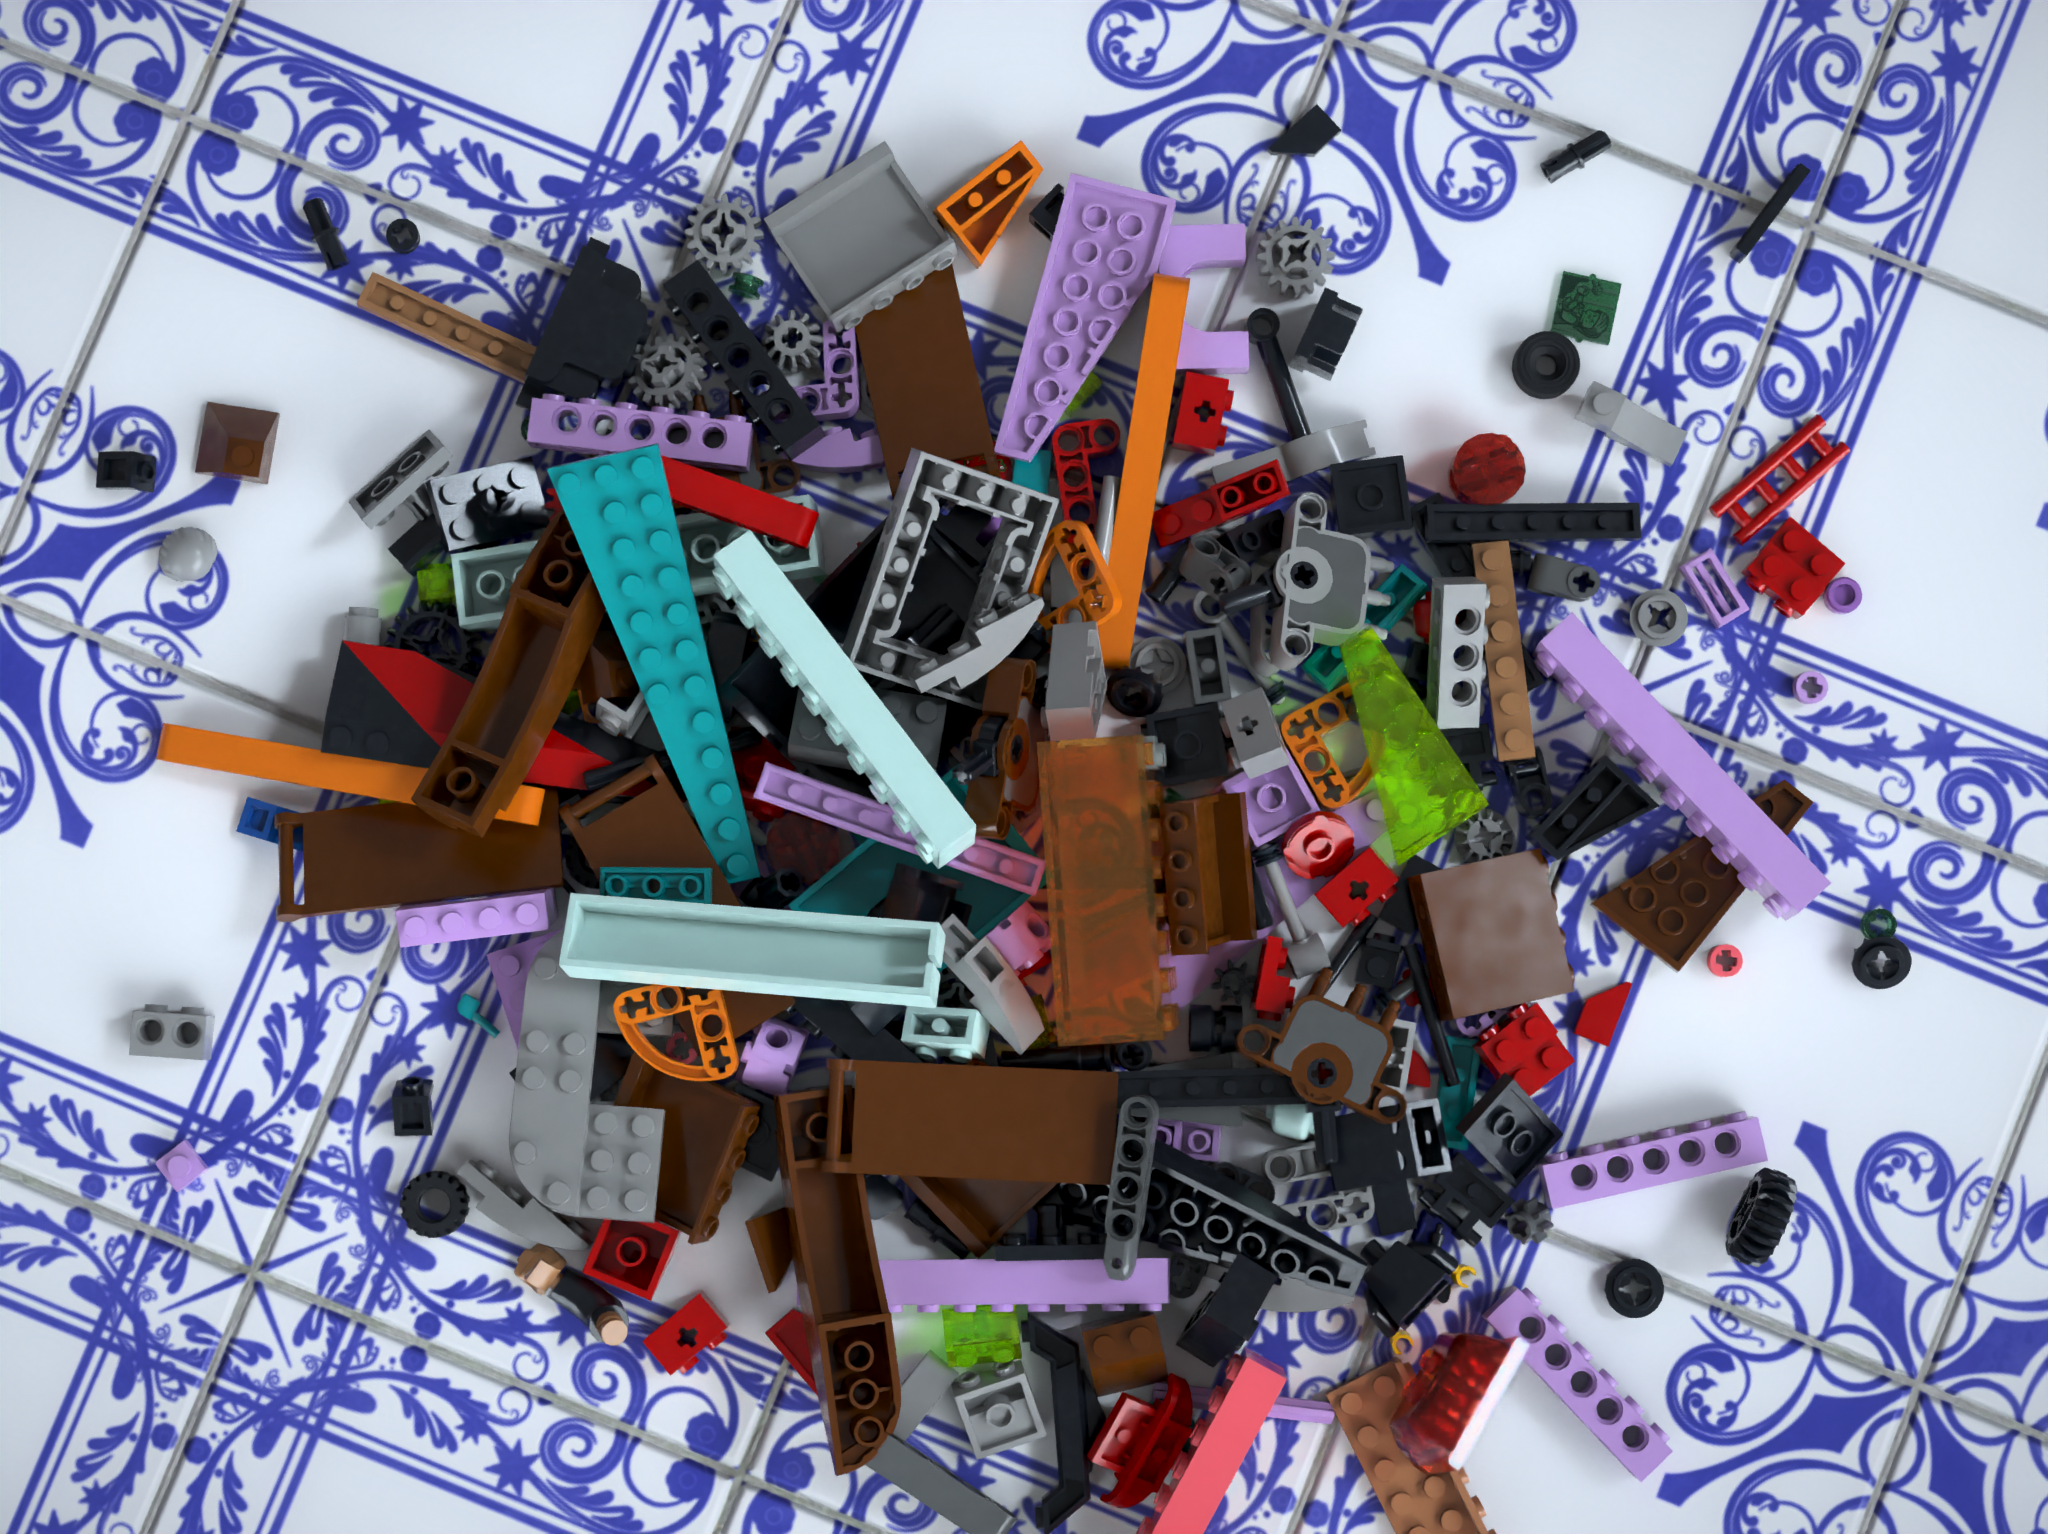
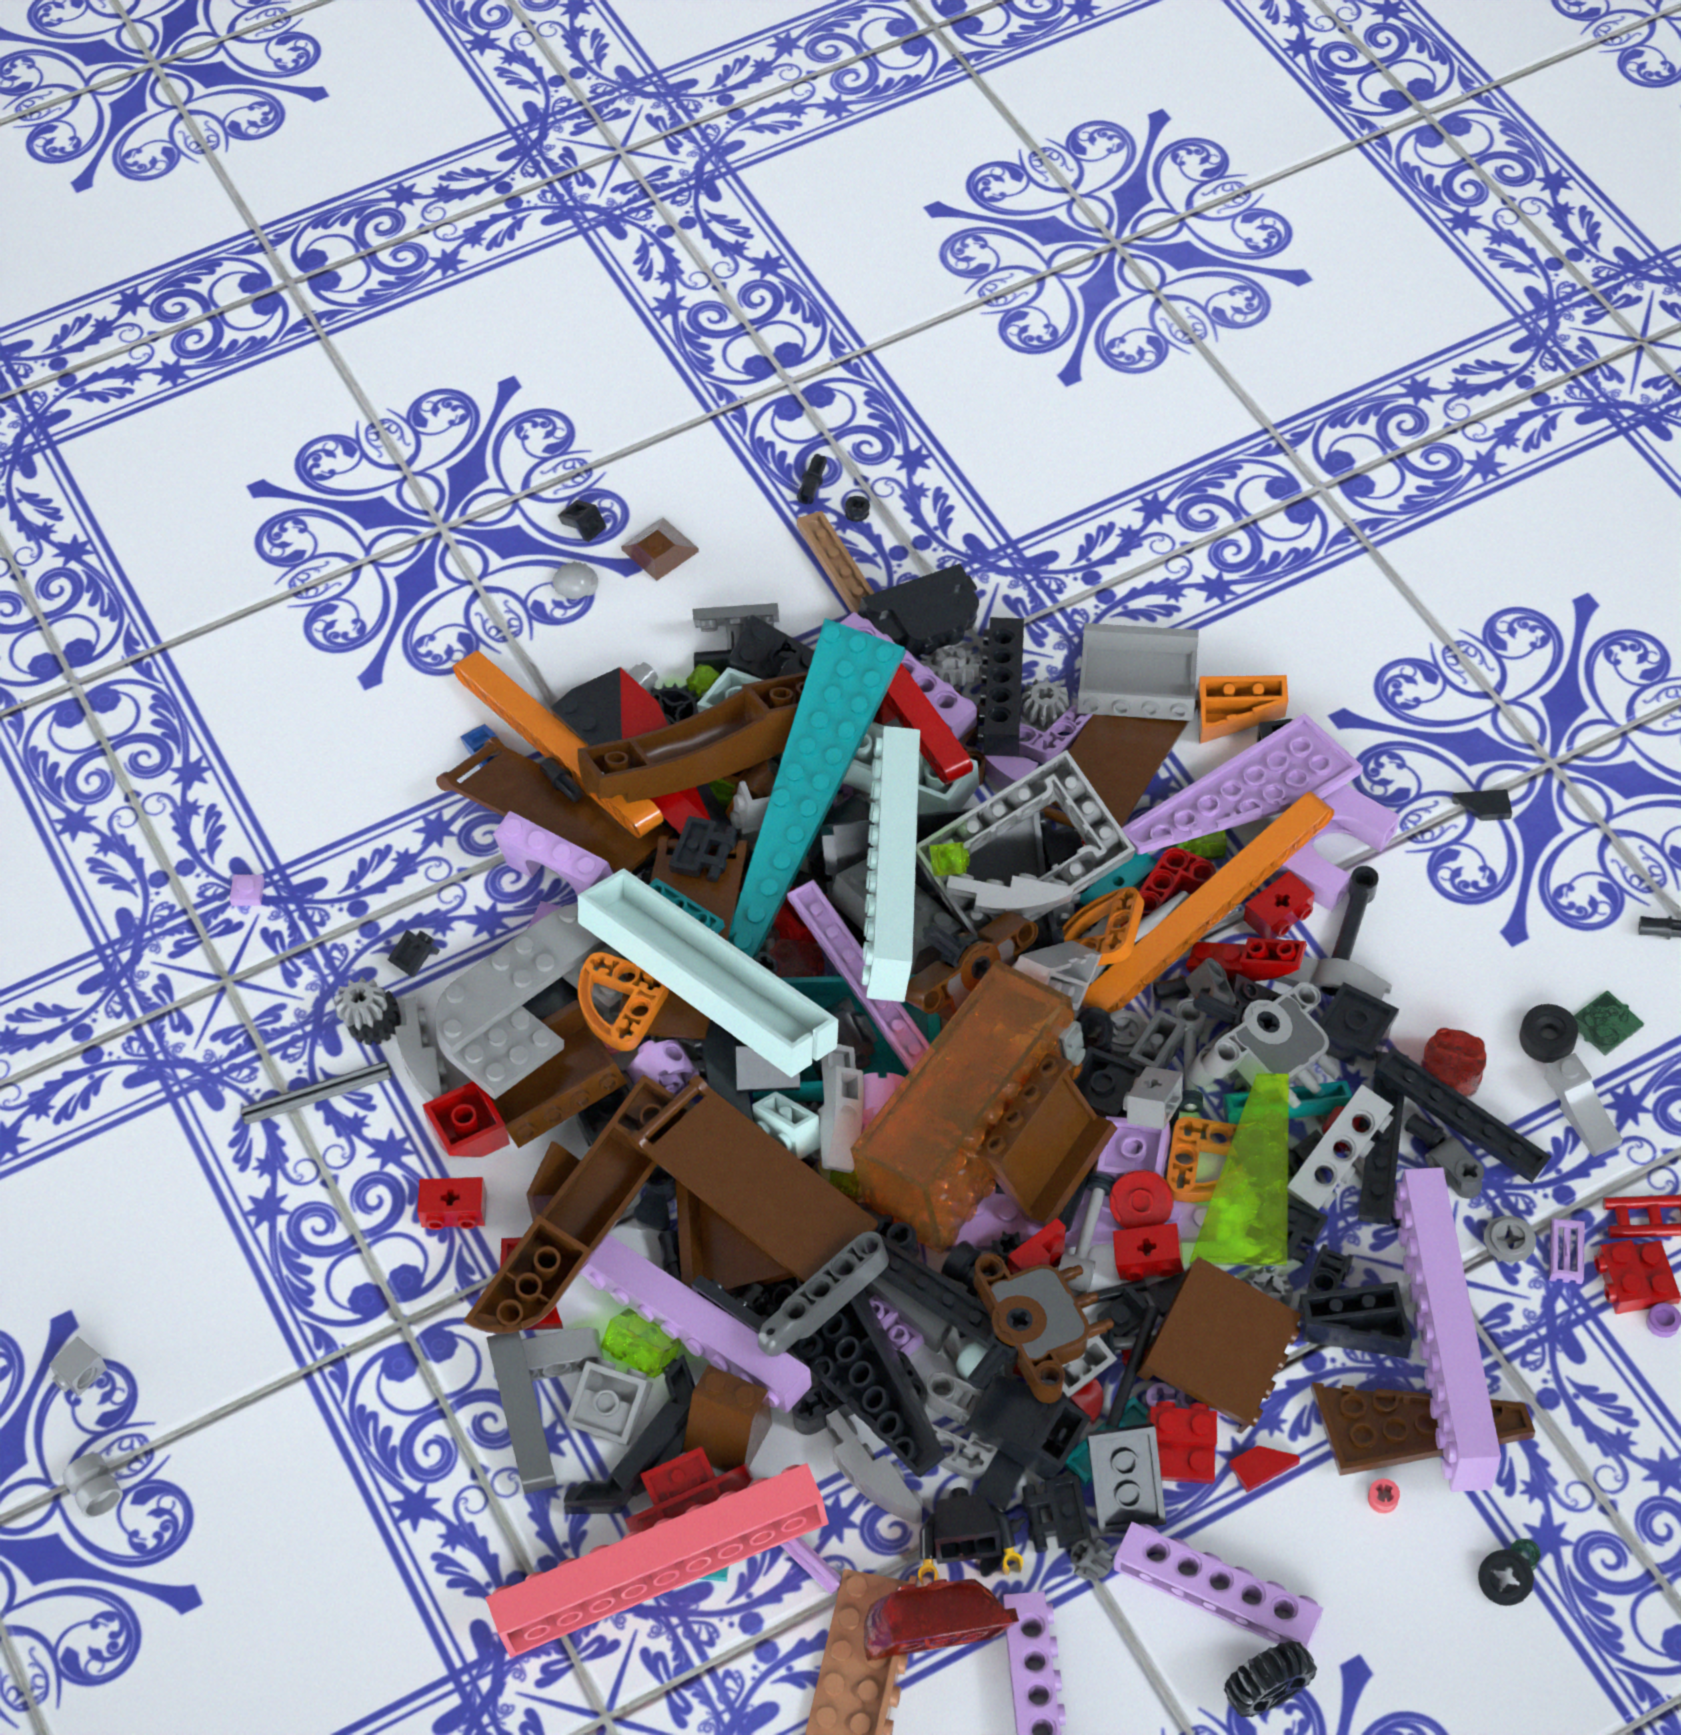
camera: 45 degrees right, 30 degrees down
(171, 1041) = (314, 813): light grey brick -> none
(397, 816) = (561, 779): none -> black axle
(418, 1225) = (360, 1003): none -> light grey gear
(453, 1322) = (316, 1092): none -> axle
(468, 1008) = (501, 923): teal hand -> none
(576, 1293) = (407, 1130): piece -> none
(610, 805) = (694, 846): none -> black plate
(710, 234) = (1053, 622): light grey gear -> none
(746, 286) = (1042, 656): clear green bush -> none
(901, 661) = (949, 859): none -> clear neon green brick
(1228, 1314) = (821, 1434): black wedge -> none
(1285, 246) = (1420, 861): light grey gear -> none
(1326, 335) = (1393, 909): black panel -> none
(1504, 654) = (1374, 1176): medium nougat plate -> none
(1646, 1301) = (1129, 1654): black gear -> none
(1818, 680) = (1590, 1351): lavender bush -> none

